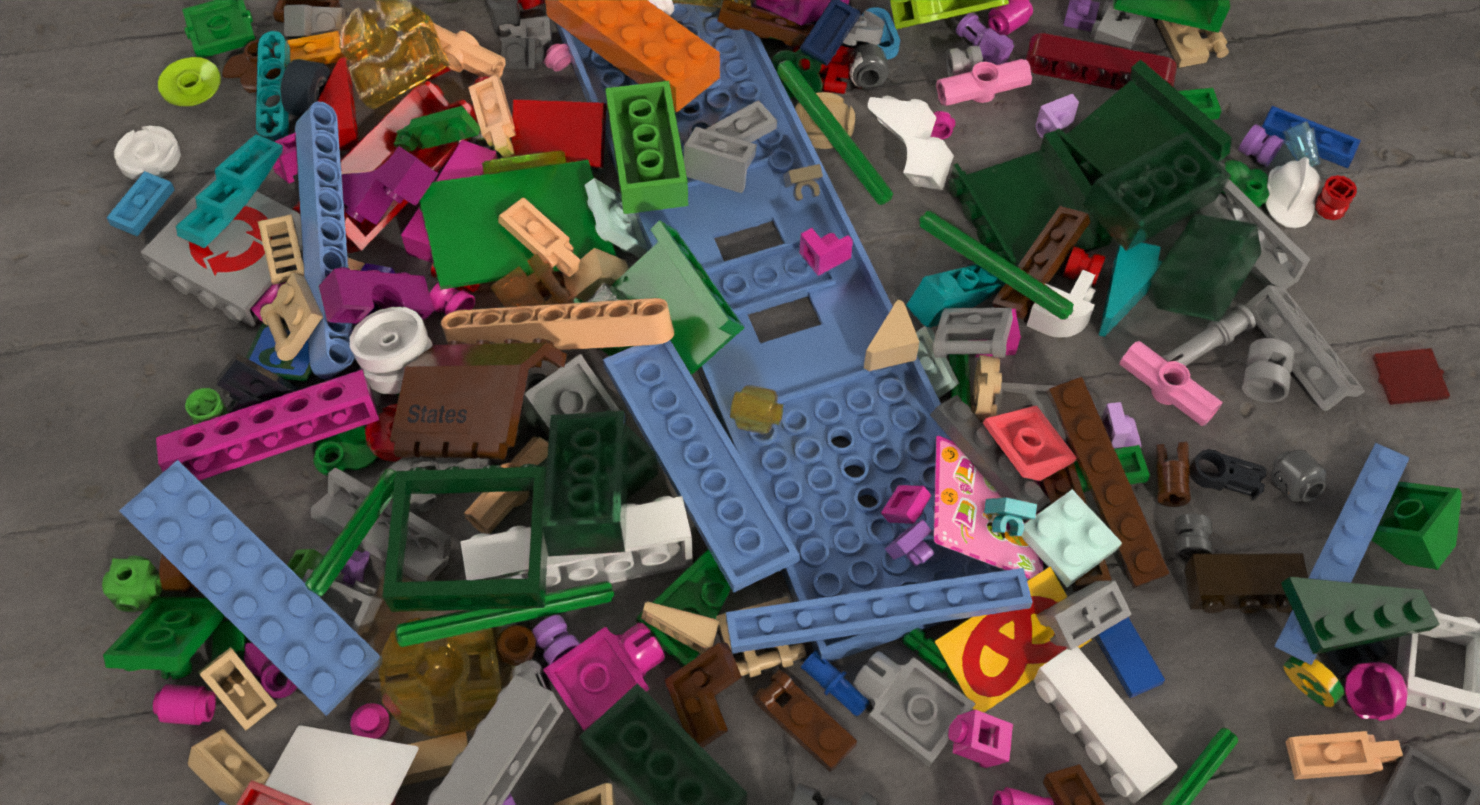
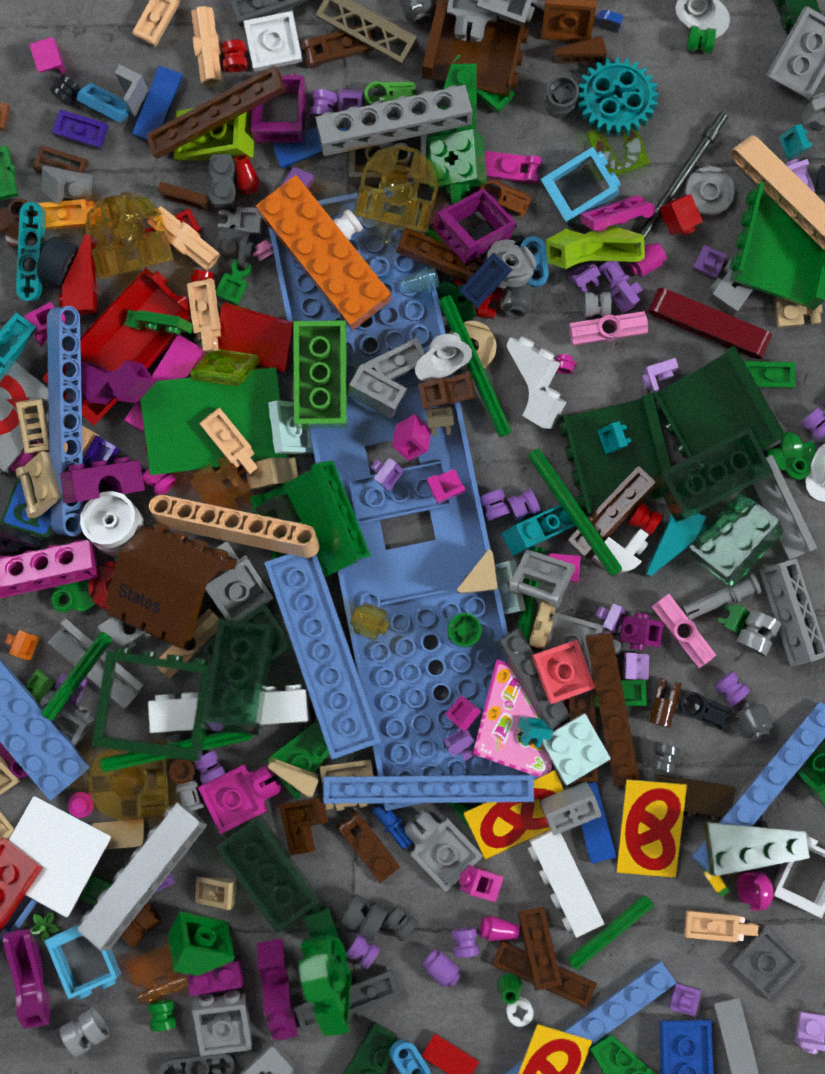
camera: 15 degrees right, 25 degrees up
(276, 517) = (22, 644): none -> orange tile
(458, 16) = (184, 196): none -> reddish brown tile
(526, 90) = (232, 286): none -> green plate
(748, 241) = (386, 473): none -> medium lavender tile
(752, 49) = (420, 281): none -> clear light blue cone
(772, 202) = (411, 437): none -> dark pink panel
(795, 115) = (444, 357): none -> white piece
(811, 151) = (447, 391): none -> reddish brown slope
(886, 400) = (464, 630): none -> green wheel
(891, 275) = (498, 510): none -> medium lavender wheel
(932, 263) = (518, 507): none -> medium lavender wheel
(942, 38) = (583, 274): none -> medium lavender tile
(1020, 184) = (613, 437): none -> teal tile
(1077, 369) = (613, 617): none -> medium lavender tile
(1117, 383) = (641, 631): none -> magenta brick
(1204, 630) = (651, 828): none -> sticker
(1233, 362) = (736, 619): none -> green tile
(1255, 441) = (733, 690): none -> medium lavender wheel

